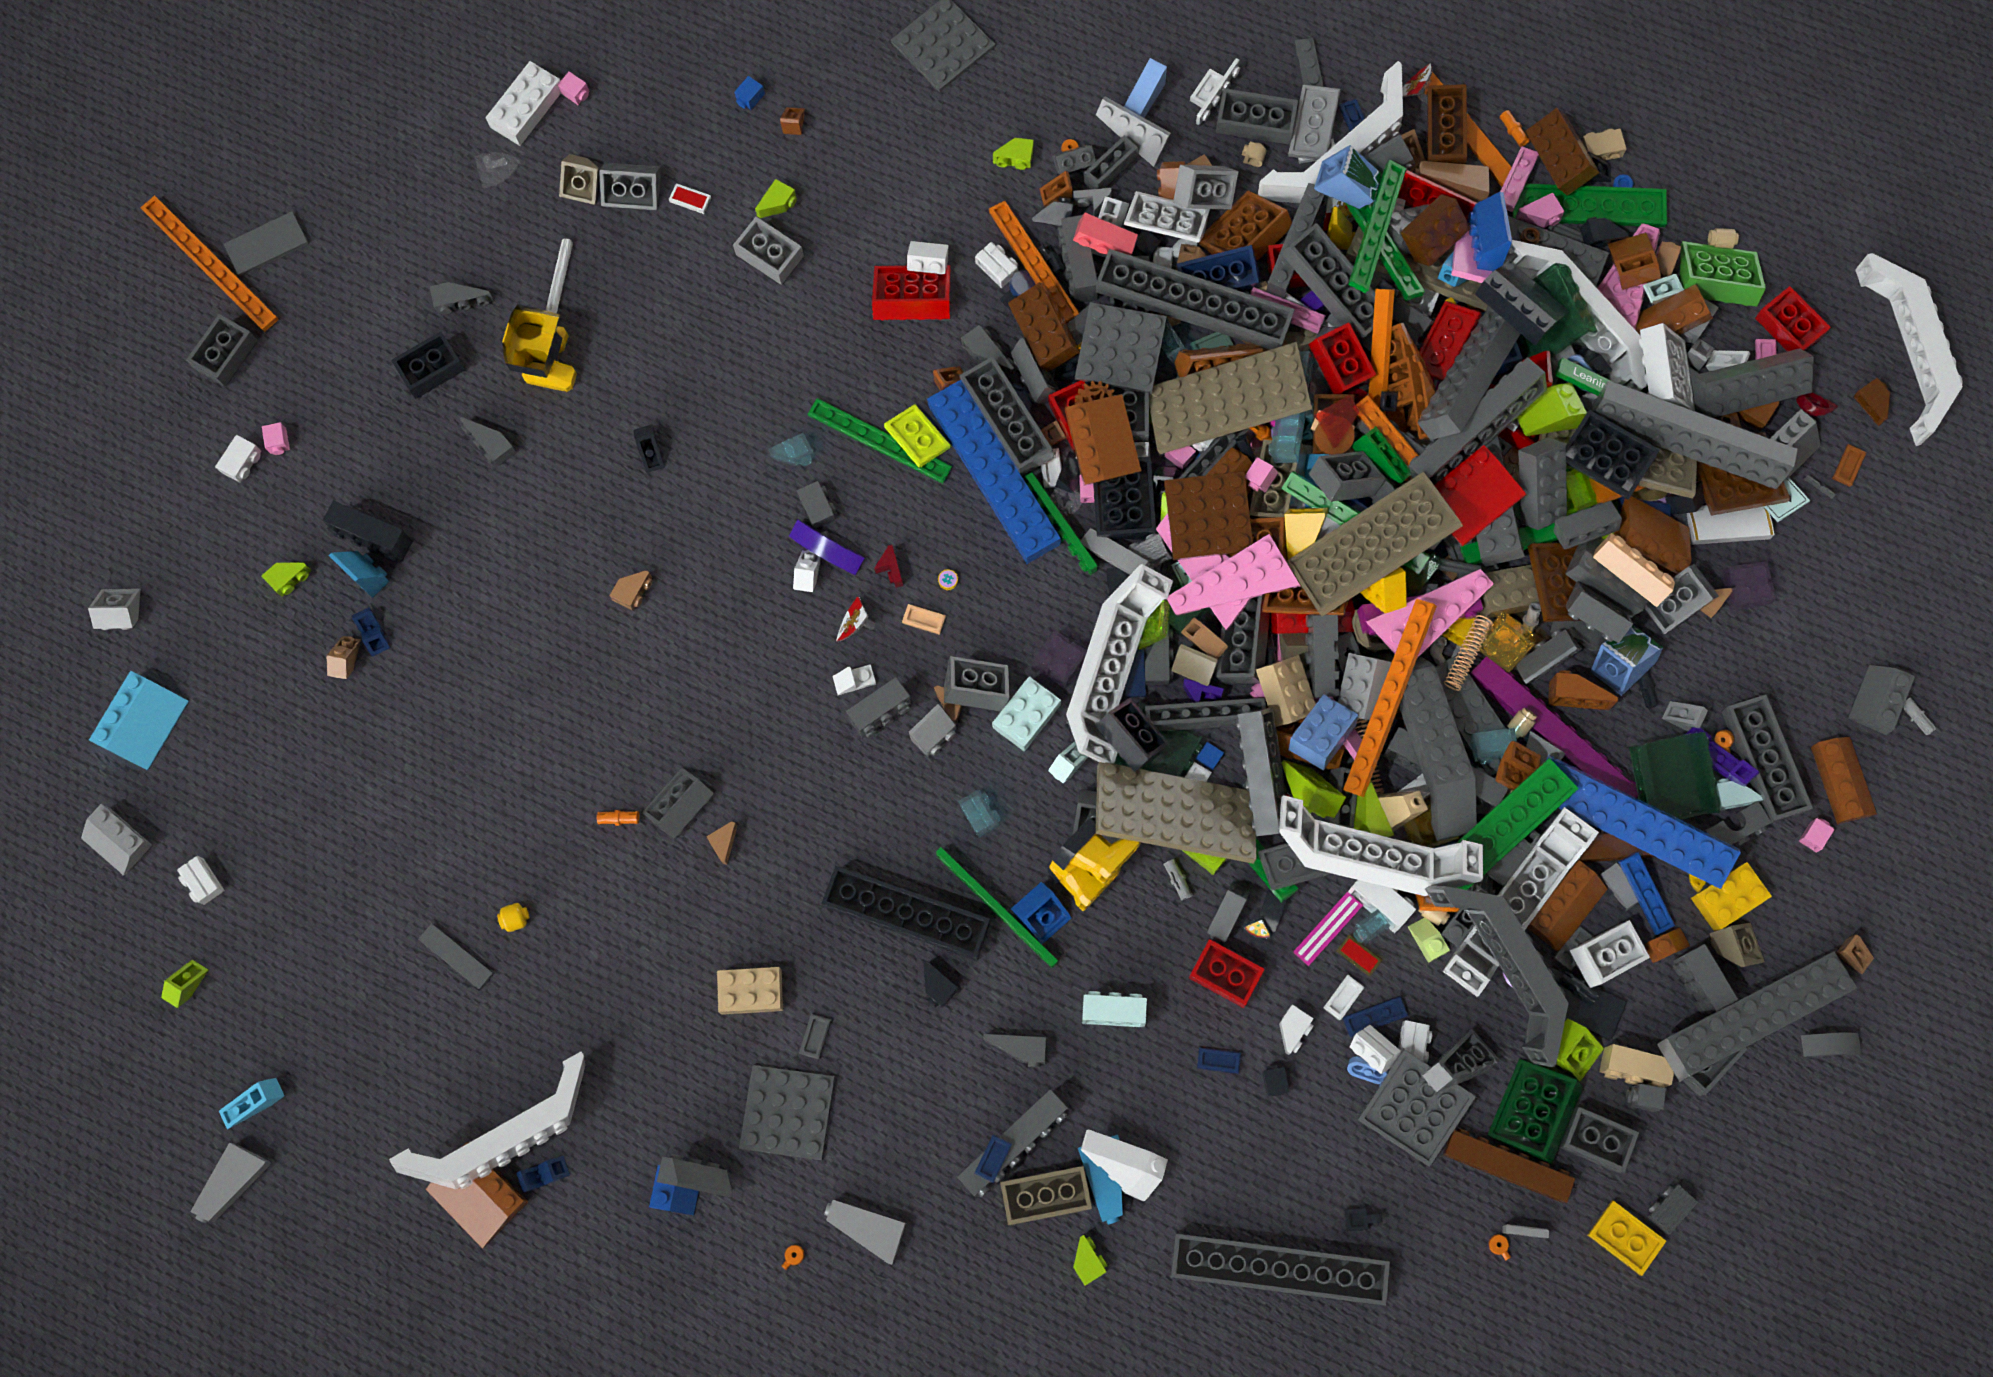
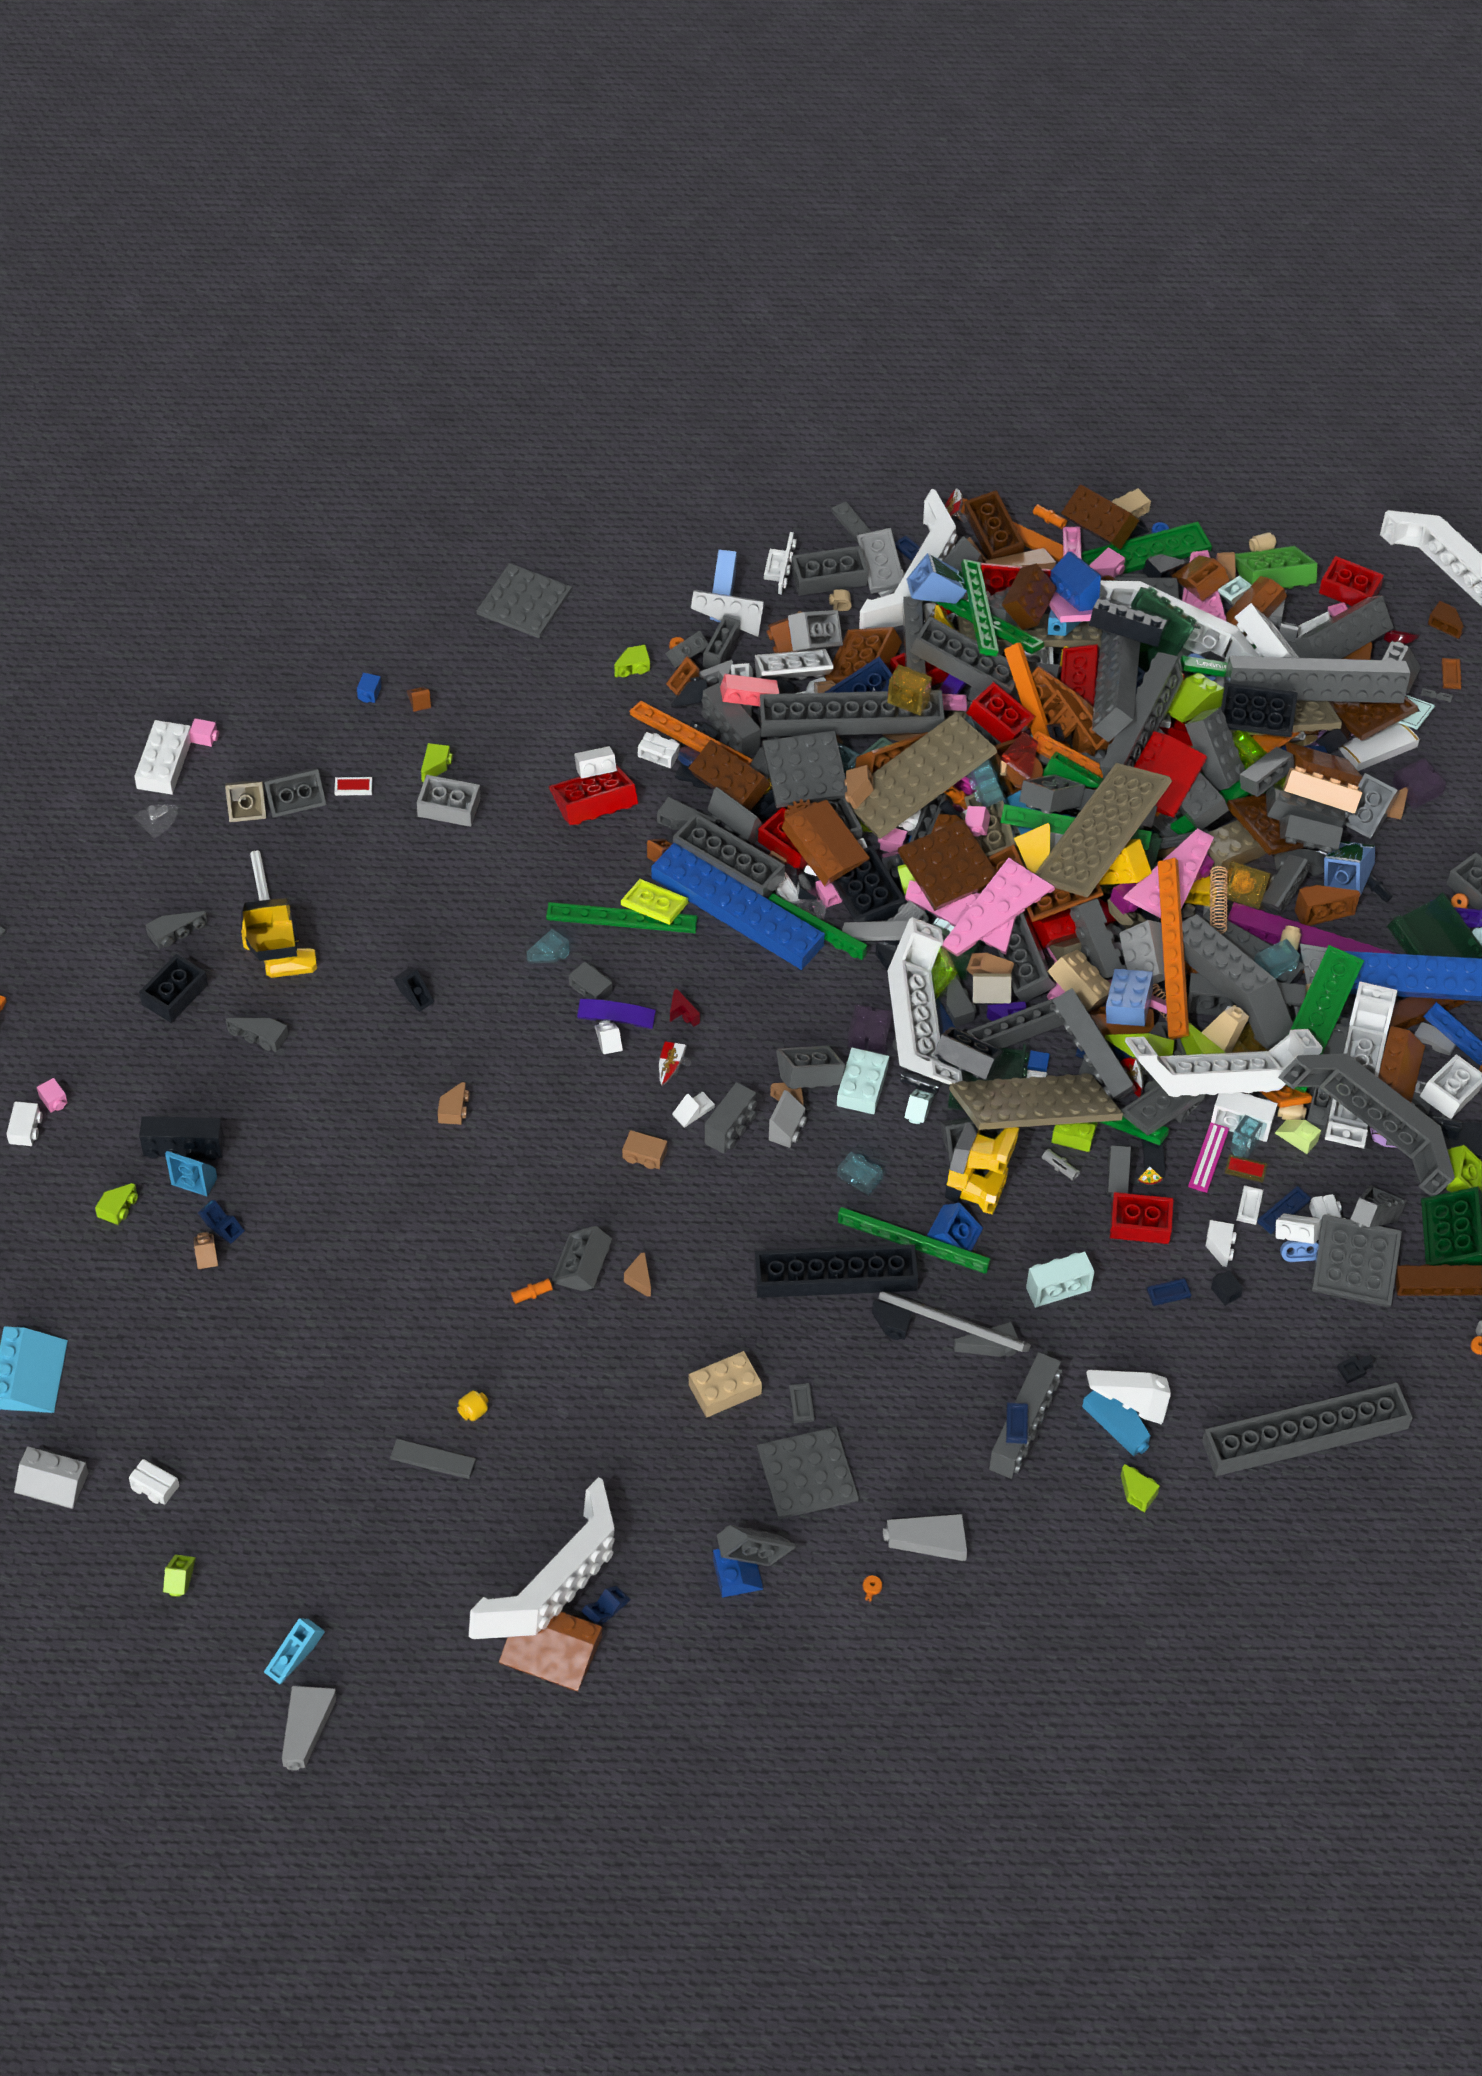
camera: 30 degrees left, 20 degrees down
(787, 708) = (644, 1150): none -> medium nougat brick
(923, 619) = (732, 1041): light nougat tile -> none
(948, 579) = (738, 1004): tile -> none
(990, 1018) = (955, 1321): none -> light grey tile
(1046, 1195) = (1075, 1447): dark tan brick -> none
(1164, 387) = (859, 785): none -> medium nougat slope
(1256, 302) = (909, 689): none -> clear yellow brick
(1516, 765) = (1303, 965): dark orange slope -> none
(1531, 618) = (1256, 858): light grey axle -> none
(1685, 715) = (1419, 893): light grey slope -> none

